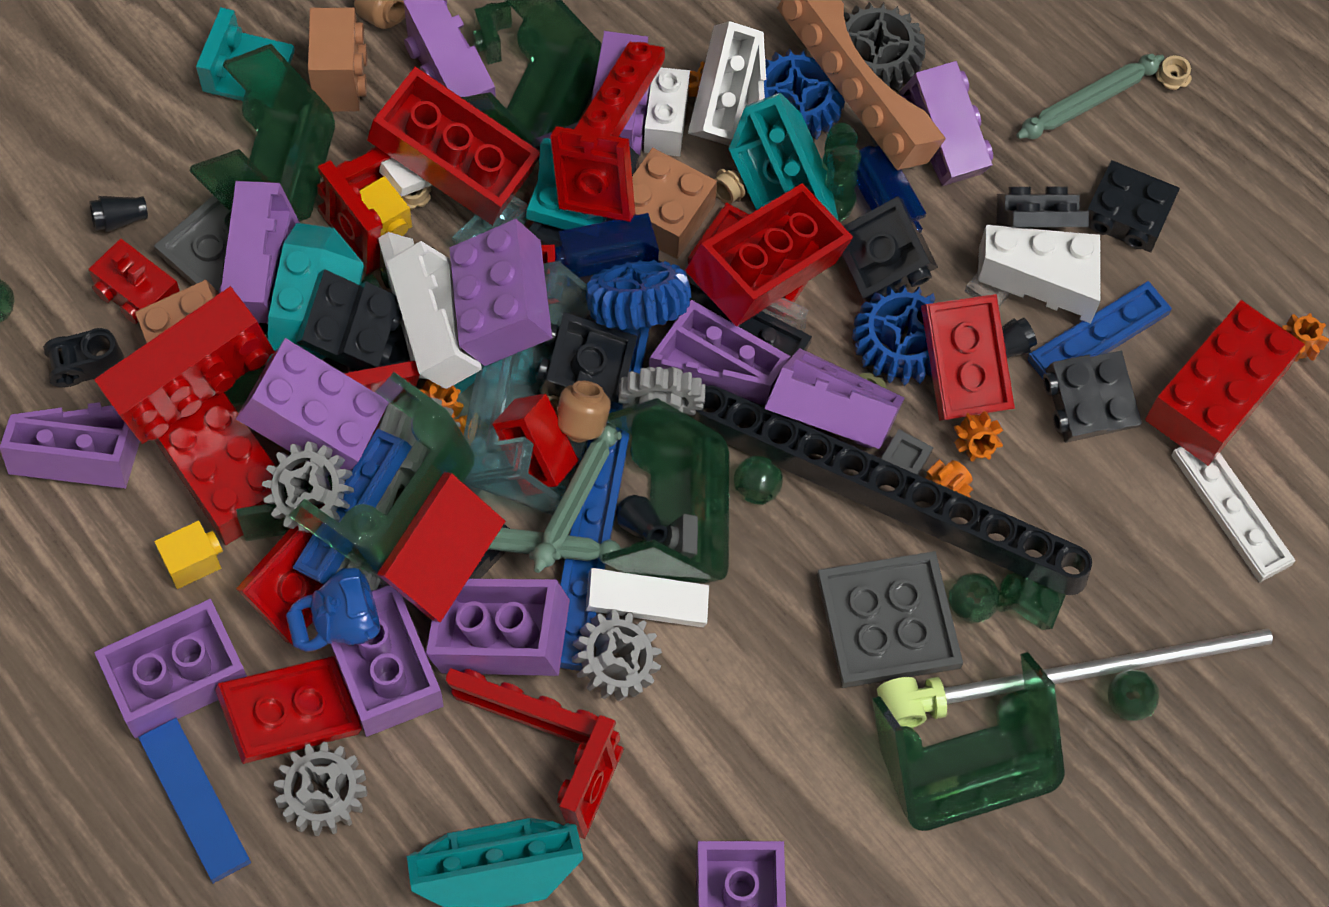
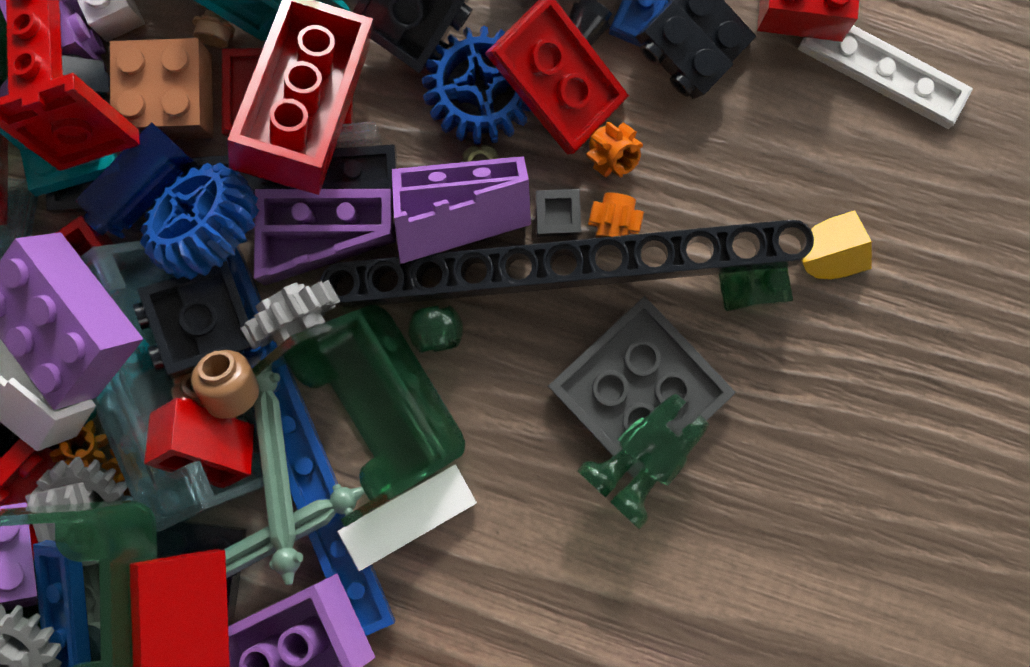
camera: 30 degrees left, 20 degrees up
(630, 642) = (406, 610): light grey gear -> none
(639, 518) = (352, 443): black cone -> none
(683, 535) = (401, 441): dark grey plate -> none
(871, 653) = (655, 447): none -> clear green piece
(910, 703) = (709, 463): flat silver piece -> none
(964, 606) = (707, 335): clear green piece -> none
(980, 769) = (806, 480): clear green windscreen -> none
(1110, 611) = (839, 248): none -> yellow brick
(1136, 708) = (917, 313): clear green piece -> none

